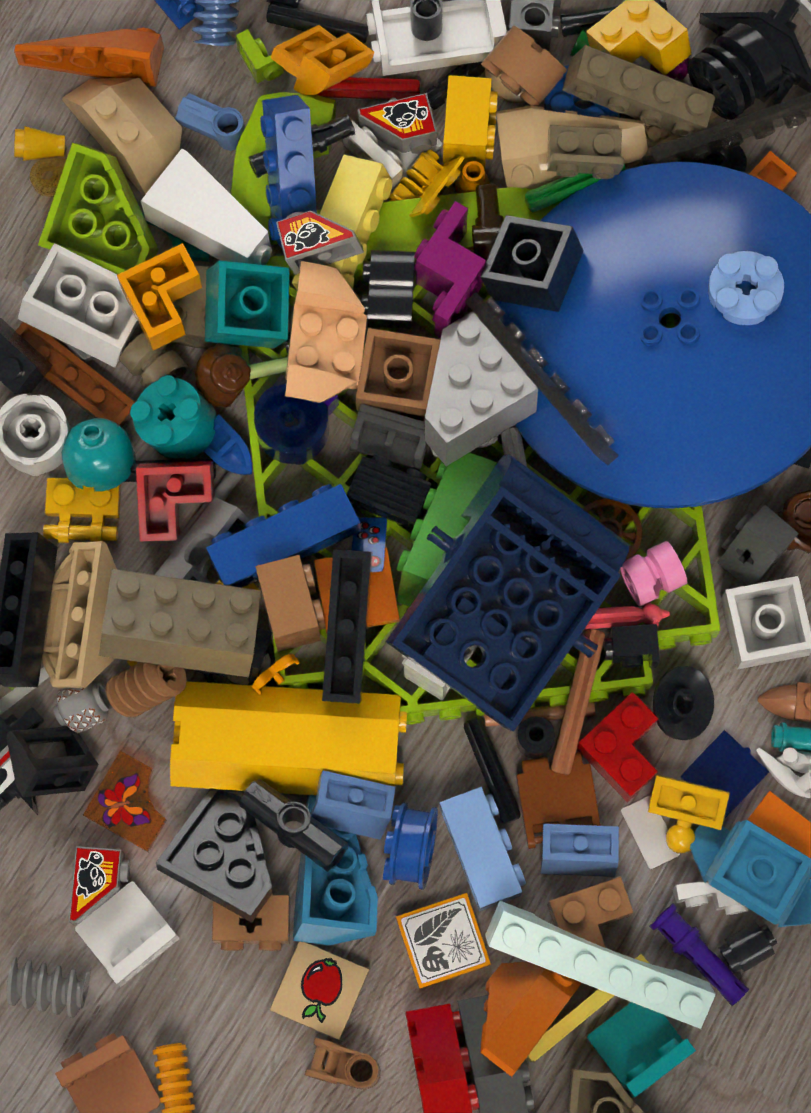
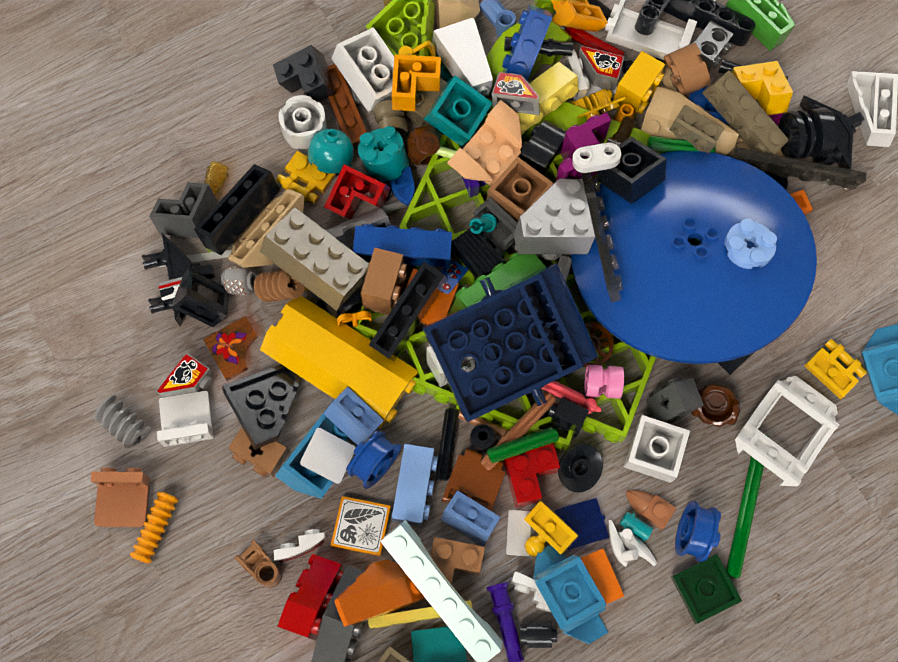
camera: 25 degrees right, 5 degrees down
(123, 255) = (406, 50): none -> yellow piece
(298, 442) = (447, 198): clear blue brick -> none
(310, 839) = (317, 420): black piece -> none
(319, 990) = (273, 513): tan tile -> none
(354, 880) = (327, 455): none -> white sticker
(377, 444) = (486, 223): none -> teal pin
(389, 1001) = (307, 543): none -> white slope
(480, 275) = (597, 159): none -> white plate
(595, 717) = (522, 445): none -> green axle

